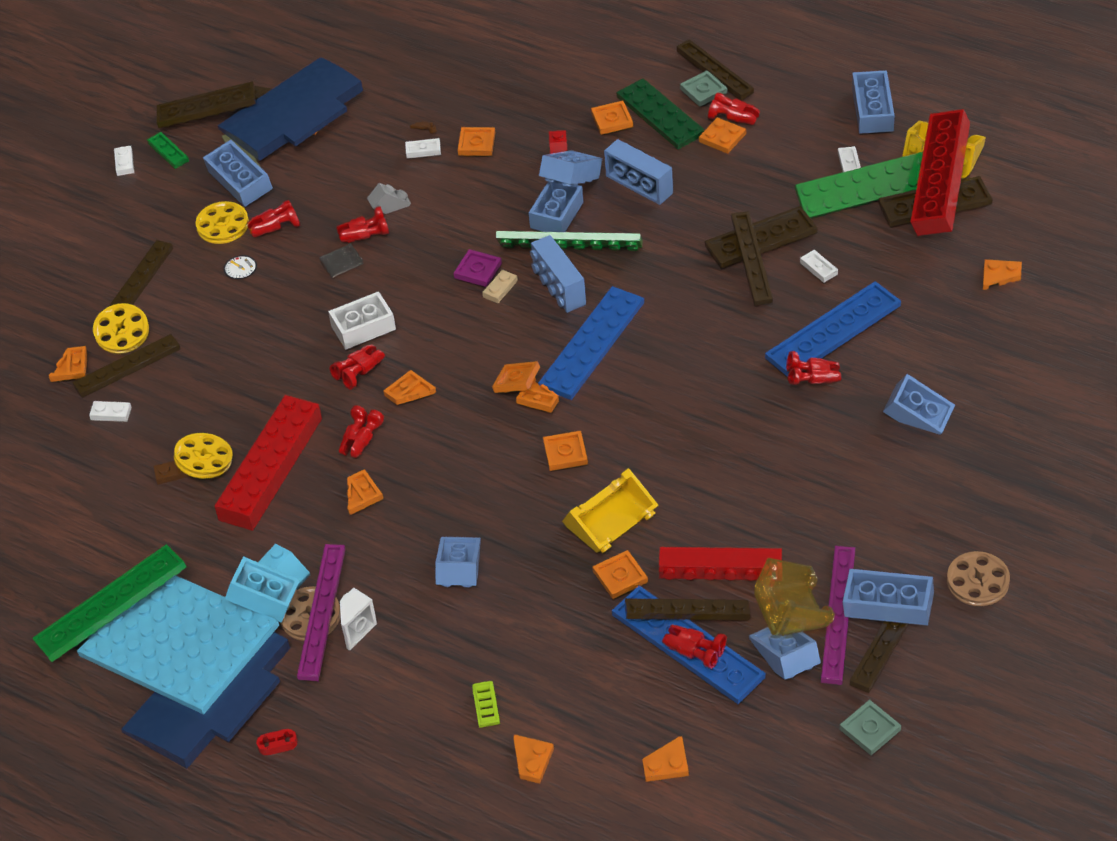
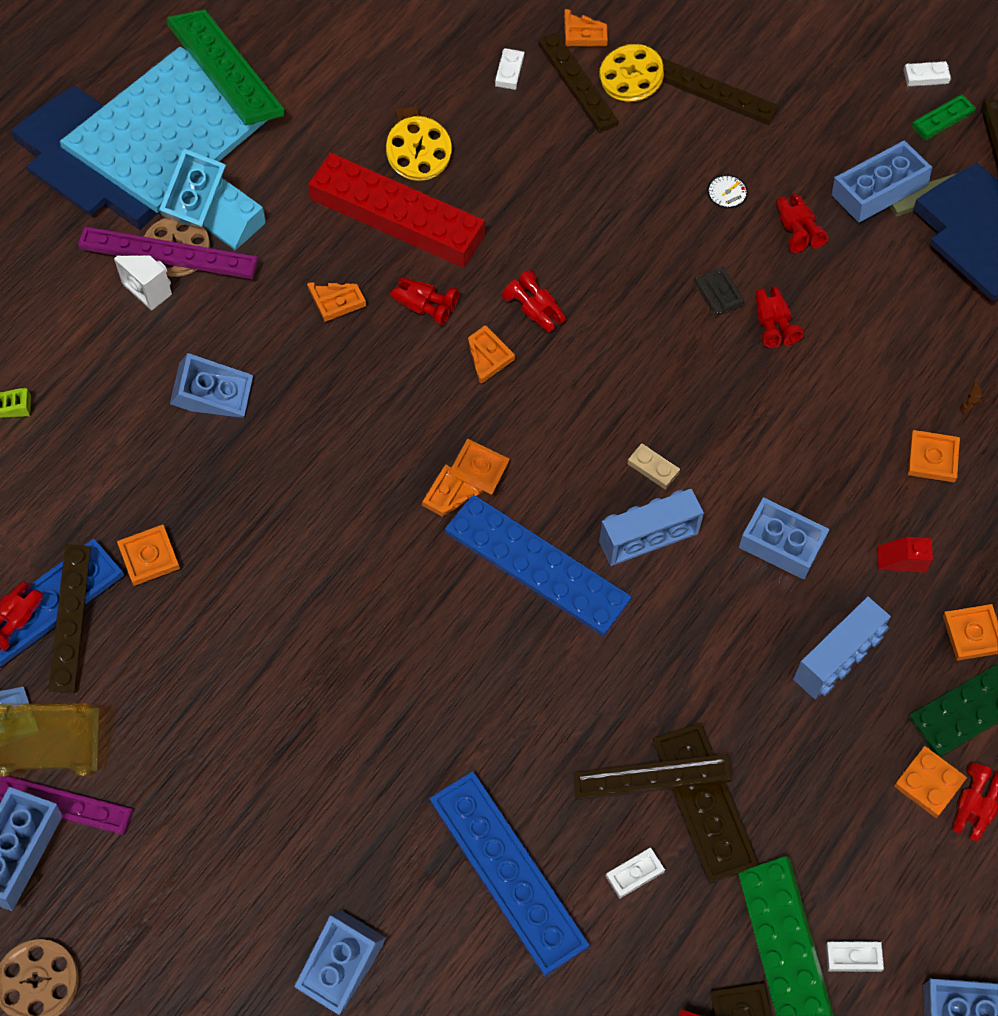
camera: 90 degrees right, 15 degrees up
(222, 222) = (806, 164): yellow wedge -> none
(277, 742) = (13, 214): red beam -> none
(362, 320) = (602, 305): white brick -> none
(388, 198) = (824, 346): light grey slope -> none
(423, 148) = (924, 391): white plate -> none
(477, 268) = (686, 441): magenta plate -> none
(565, 450) = (354, 514): orange plate -> none
(570, 167) = (843, 553): medium blue brick -> none
(578, 240) = (715, 550): green plate -> none
(611, 512) = (237, 548): yellow windscreen -> none
(714, 562) = (133, 668): red brick -> none
(817, 370) = (422, 833): red piece -> none

